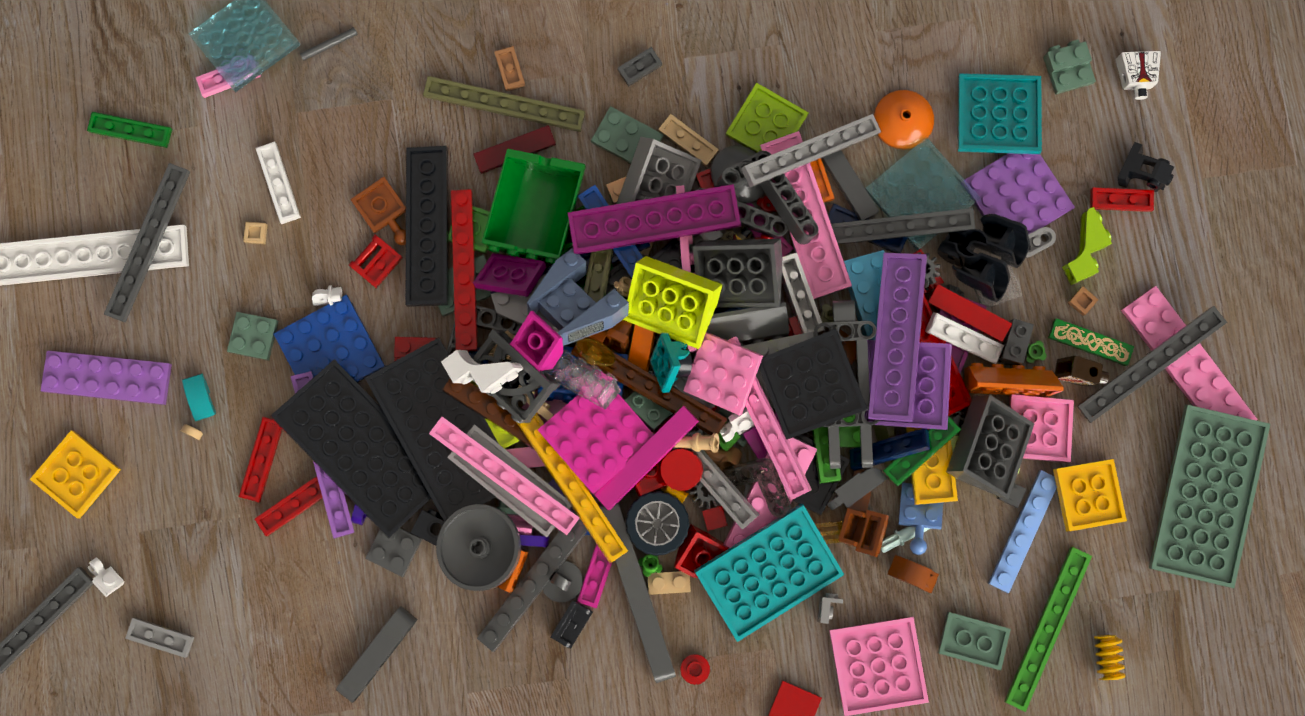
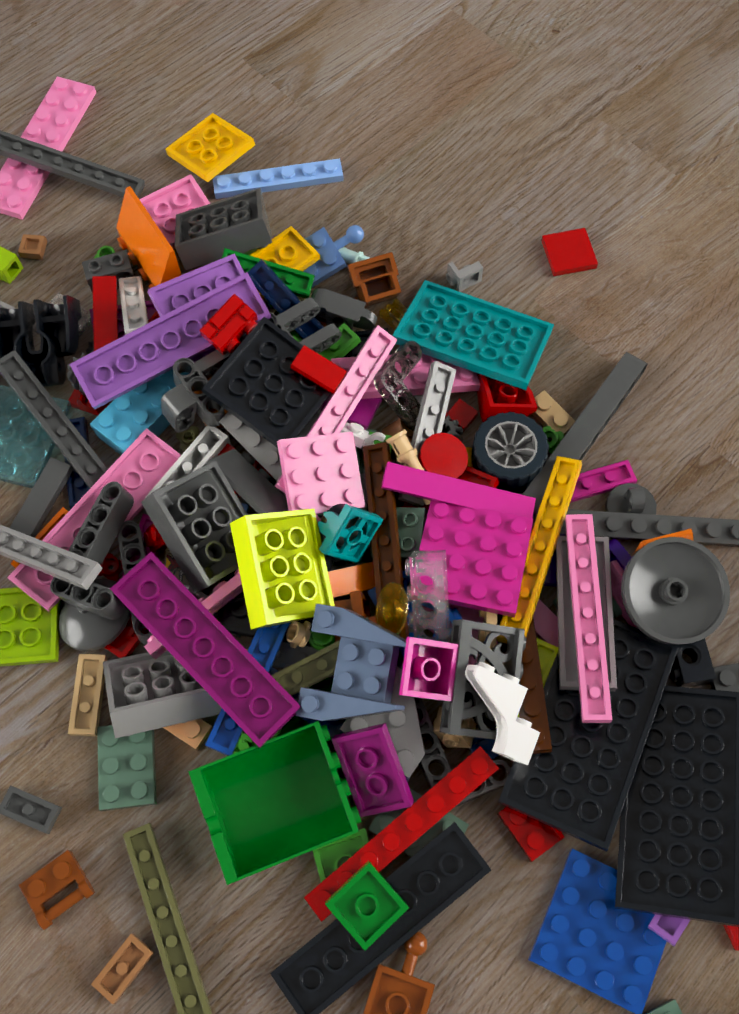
camera: 125 degrees left, 15 degrees down
(327, 296) = (545, 977): white piece -> none
(380, 265) = (466, 944): red plate -> none
(438, 219) = (366, 905): none -> green plate
(530, 142) = (210, 881): dark red tile -> none
(571, 624) = (662, 472): black hinge -> none
(588, 57) = (50, 882): none -> dark orange plate
(695, 669) = (606, 344): red piece -> none
(800, 421) = (318, 369): none -> red tile
(875, 379) = (229, 325): none -> red brick
(878, 666) = (479, 212): bright pink plate -> none
(913, 573) = (381, 229): dark orange brick -> none
(974, 641) = (400, 159): sand green plate -> none
(1048, 629) = (346, 117): bright green plate -> none
(1080, 371) = (100, 204): dark brown torso -> none
(1091, 342) = (68, 223): green tile -> none
(1110, 657) = (336, 64): yellow piece -> none
(1209, 496) = (147, 71): sand green plate -> none

